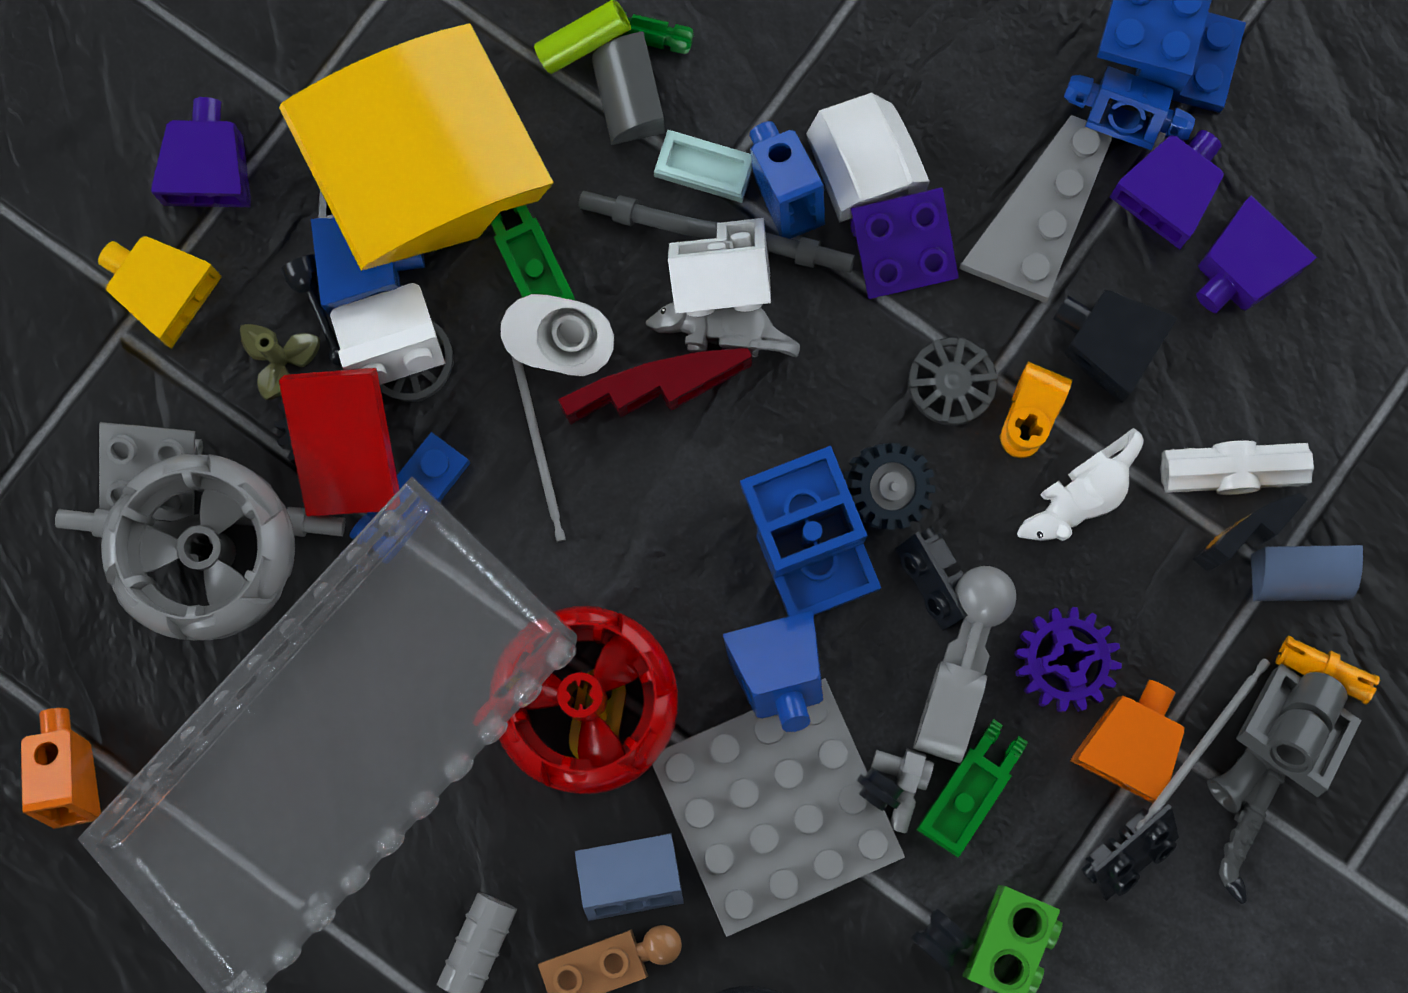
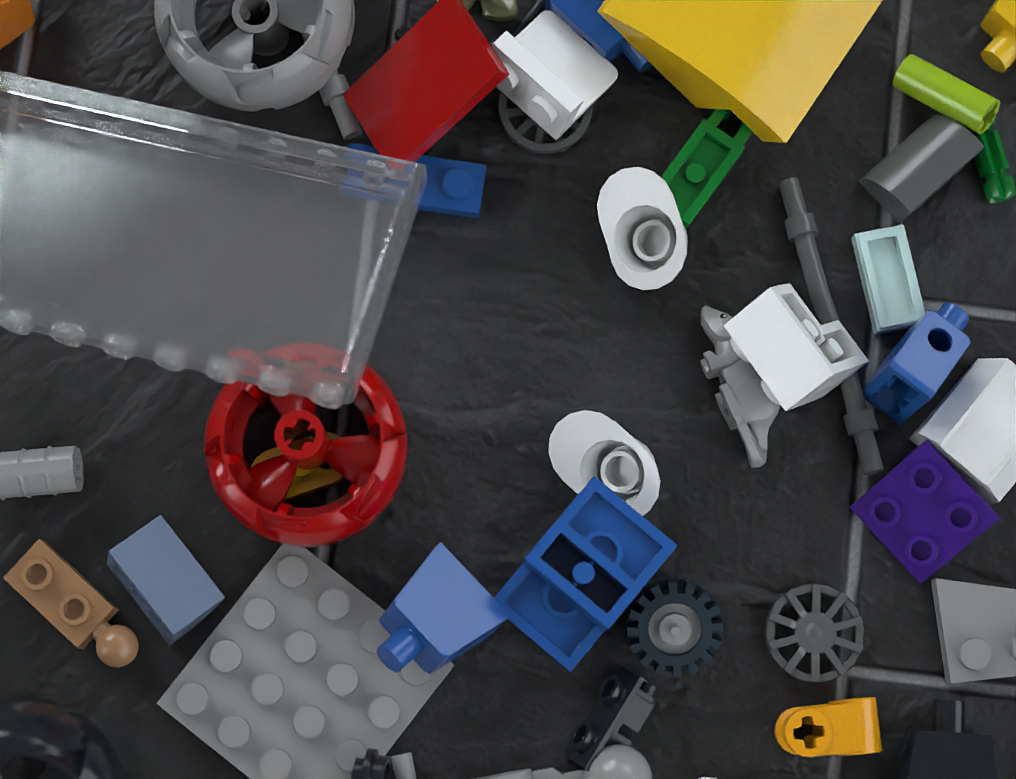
camera: 55 degrees right, 0 degrees up
(538, 448) = (521, 278): light grey piece -> none
(673, 378) = (664, 363): dark red slope -> none
(713, 469) = (597, 446): none -> white piece

